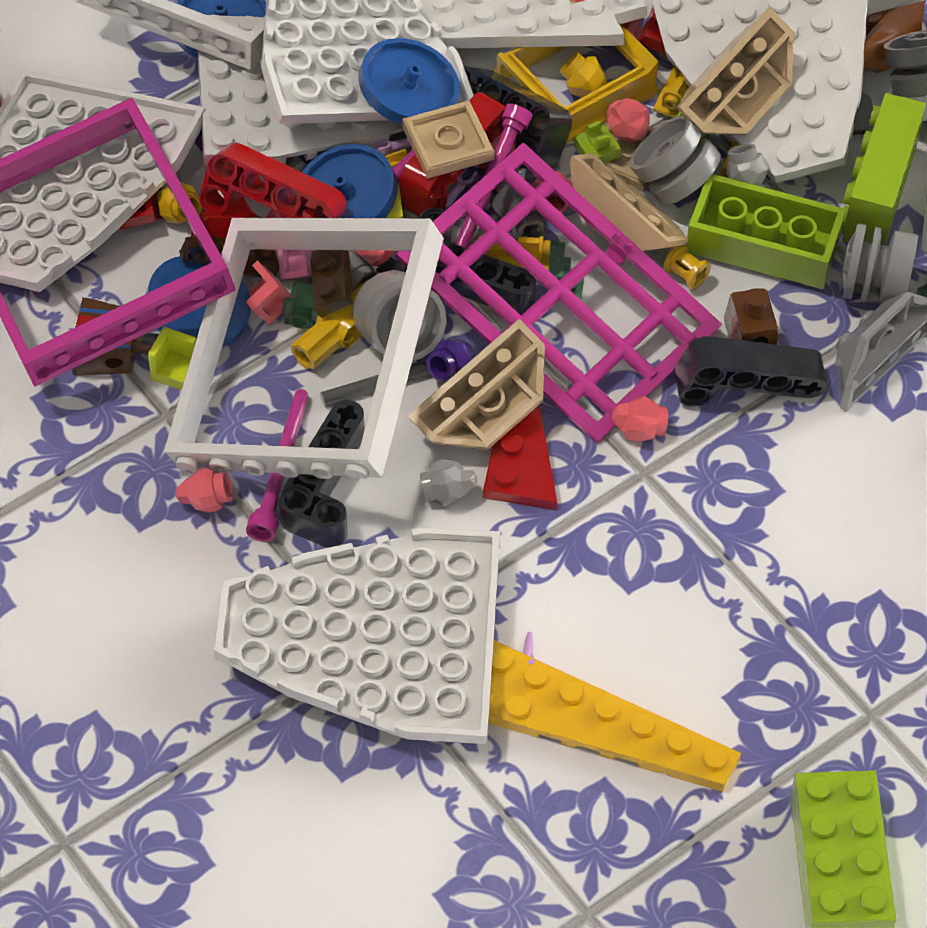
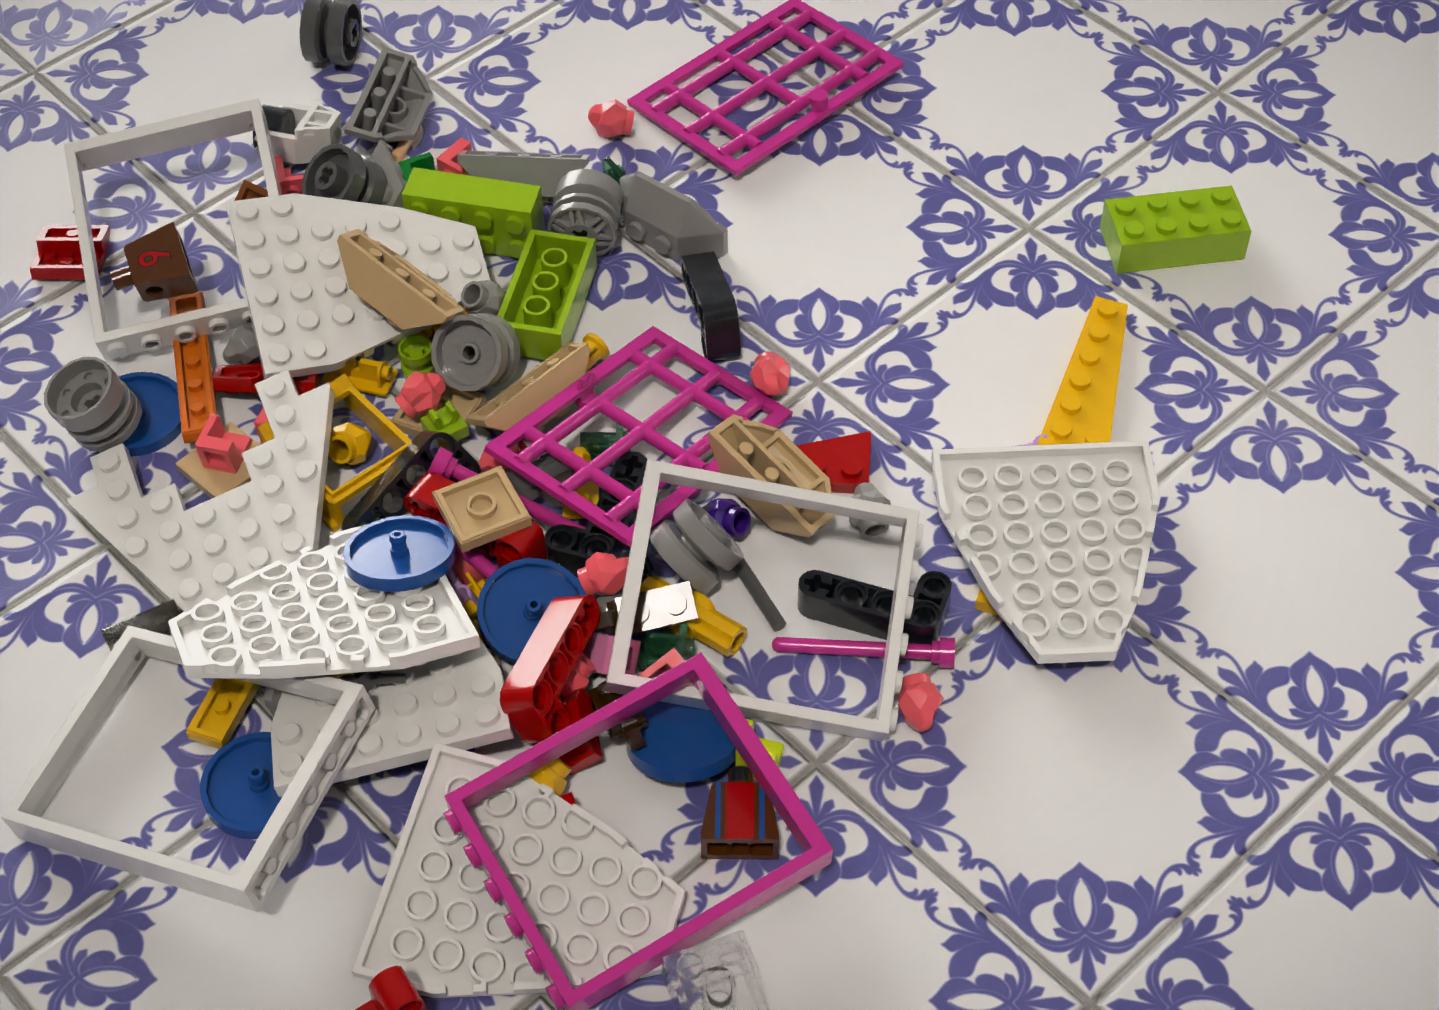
camera: 95 degrees left, 5 degrees down
(751, 316) = (660, 299): reddish brown torso -> none

